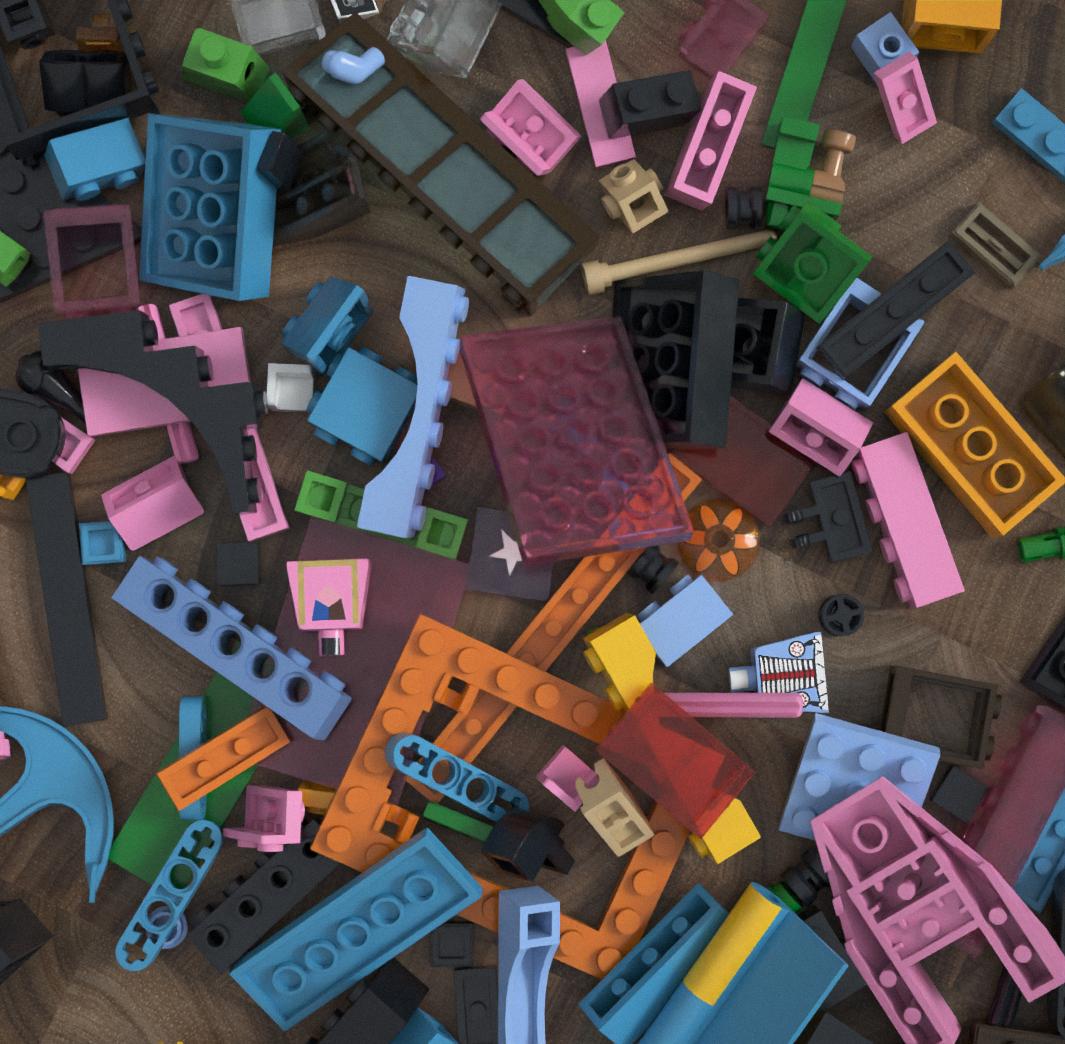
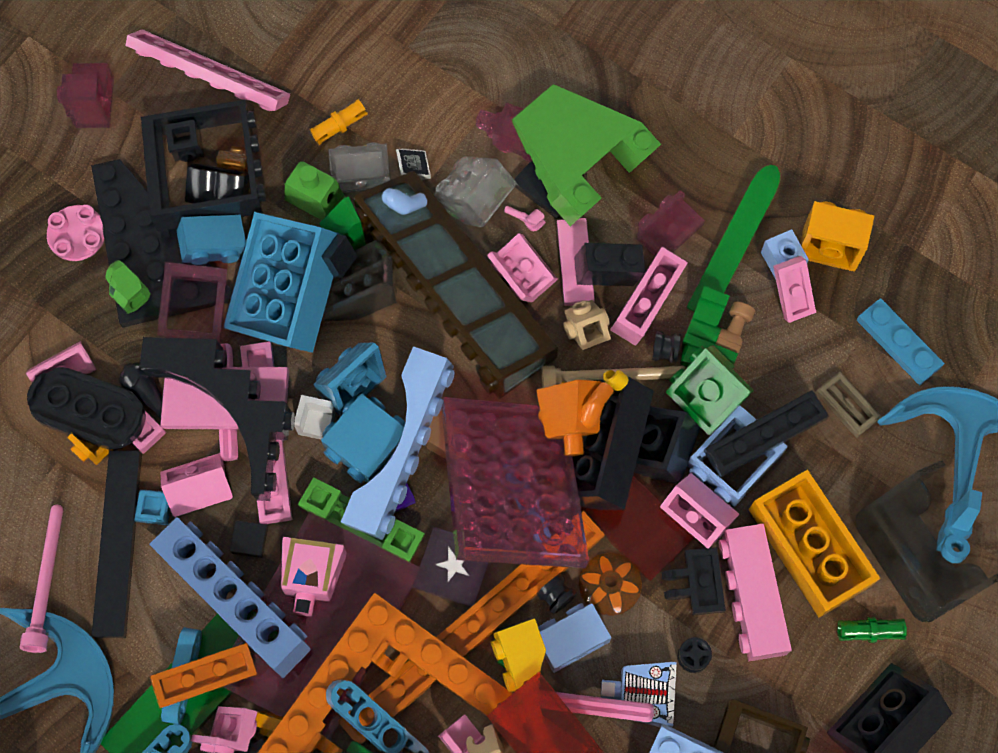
camera: 10 degrees right, 15 degrees down
(533, 54) = (533, 221): none -> bright pink hand
(641, 324) = (576, 407): none -> orange torso

